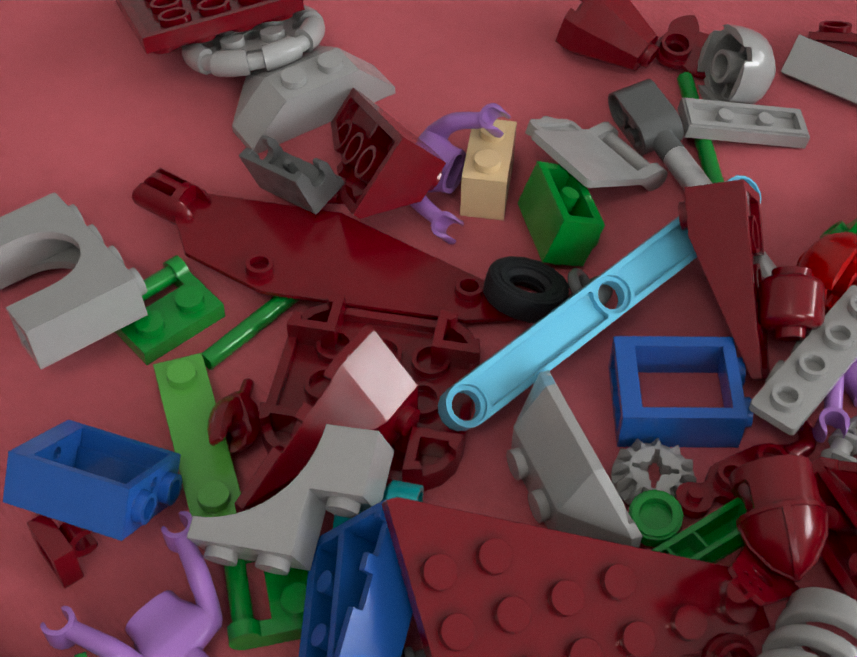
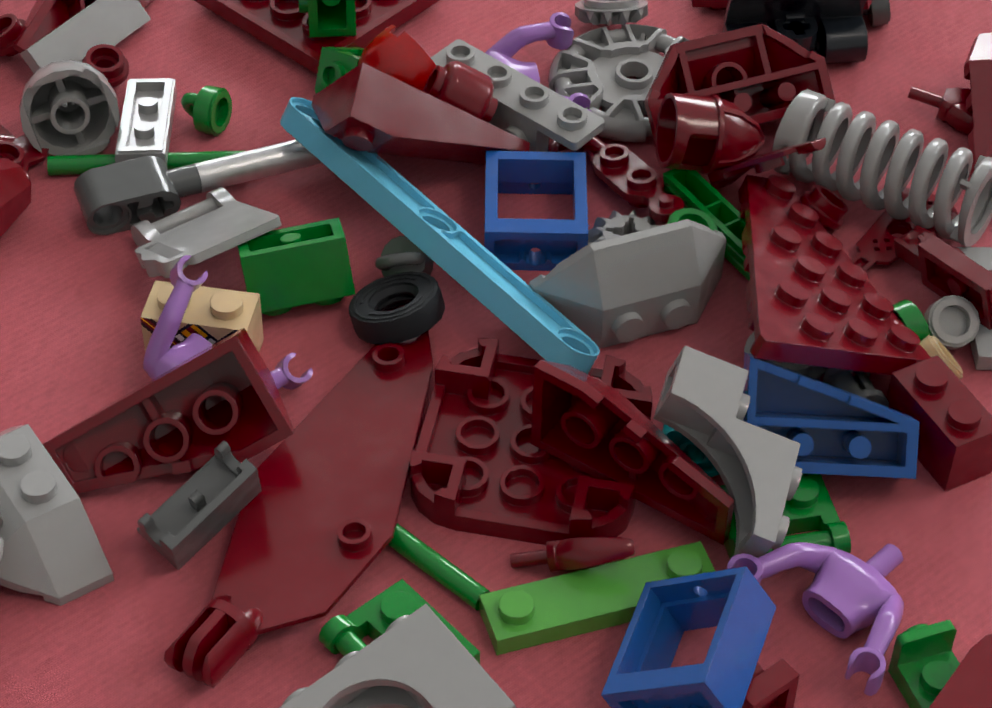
camera: 90 degrees left, 5 degrees down
(768, 158) = (209, 109): none -> green tile
(813, 94) = (108, 61): none -> dark red plate

